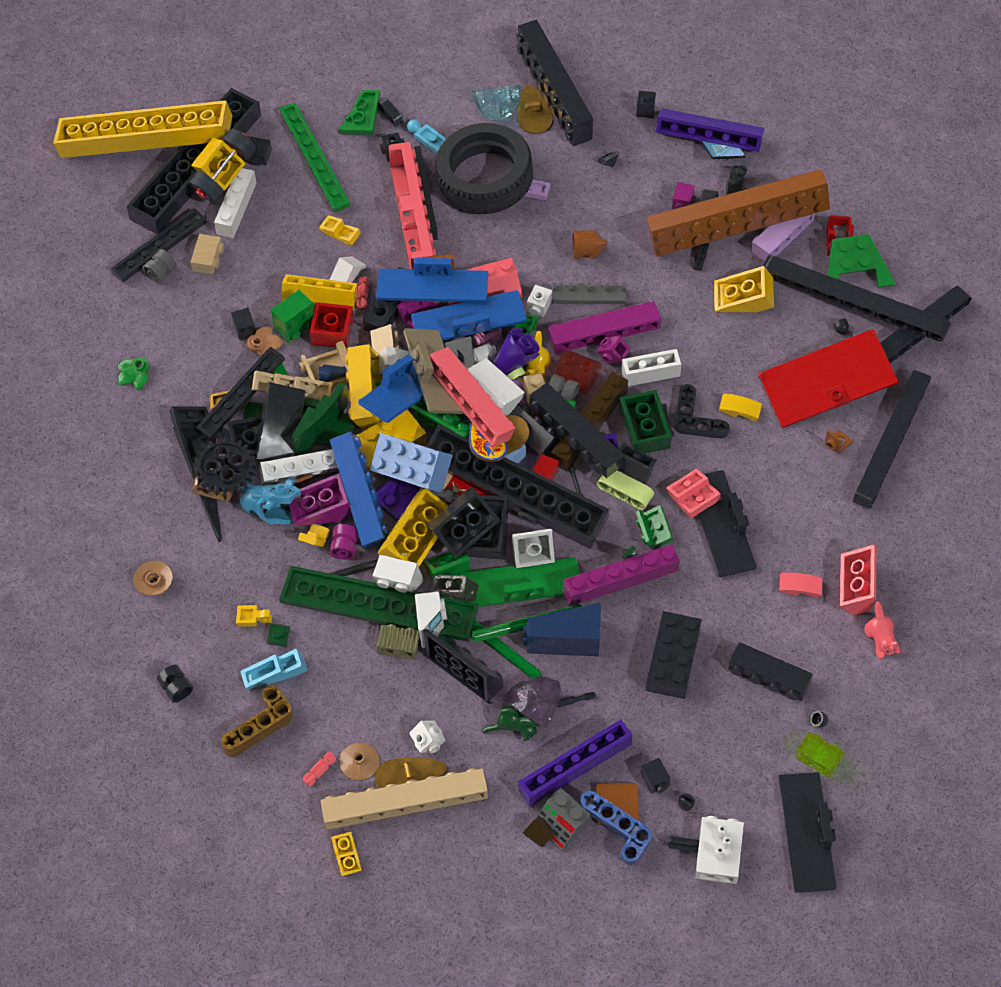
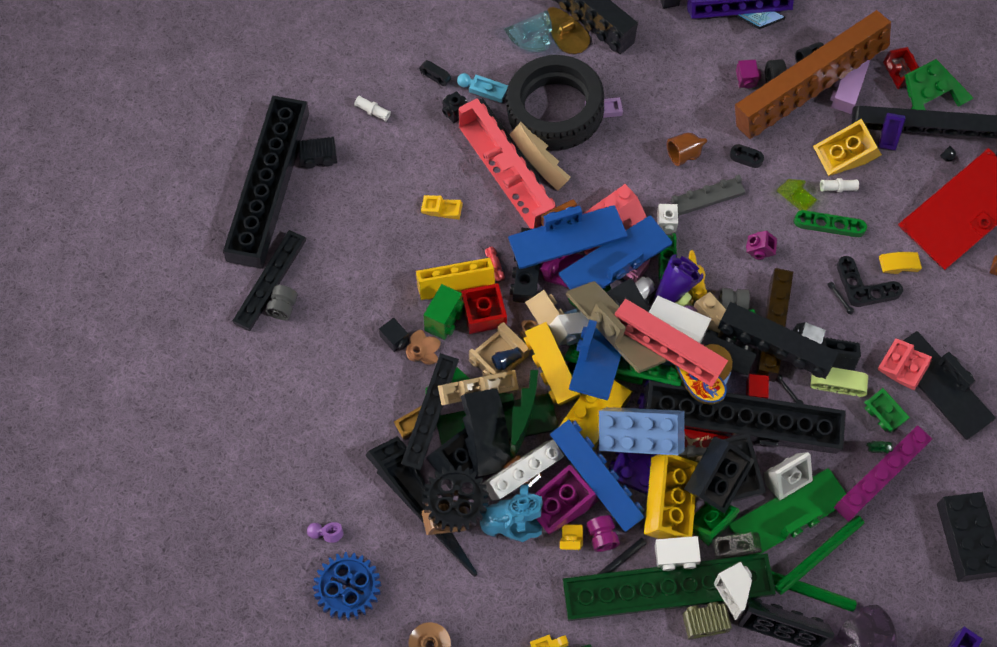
camera: 25 degrees left, 5 degrees up
(112, 465) = (331, 532): none -> medium lavender plate
(119, 500) = (356, 569): none -> blue gear
(131, 373) = (305, 426): green plate -> none
(142, 129) = (204, 165): yellow brick -> none
(206, 254) = (322, 273): tan brick -> none
(220, 164) = (300, 177): brick -> none
(235, 203) = (327, 211): white brick -> none
(314, 157) = (383, 140): green plate -> none
(318, 126) = (372, 108): none -> white pin
(347, 269) = (468, 246): white slope -> none
(364, 114) = (409, 83): green wing -> none
(444, 209) = (535, 151): none -> tan slope
(565, 632) = (869, 551): dark blue slope -> none
(572, 700) = (908, 609): black piece -> none
(579, 369) = (737, 275): clear red brick -> none
(595, 328) = (740, 224): magenta brick -> none
(609, 159) = (660, 57): black slope -> none
(613, 435) = (810, 331): none -> brick
(645, 269) = (746, 156): none -> black beam
(645, 422) = (827, 307): dark green brick -> none
(651, 367) = (805, 250): white brick -> none
(674, 319) = (795, 193): none -> clear neon green slope
(694, 350) = (830, 221): none -> green beam
(700, 256) = (789, 125): black axle -> none
(719, 322) = (839, 185): none -> white pin
(735, 179) = (784, 46): black piece -> none
(791, 288) = (891, 131): none -> dark purple tile

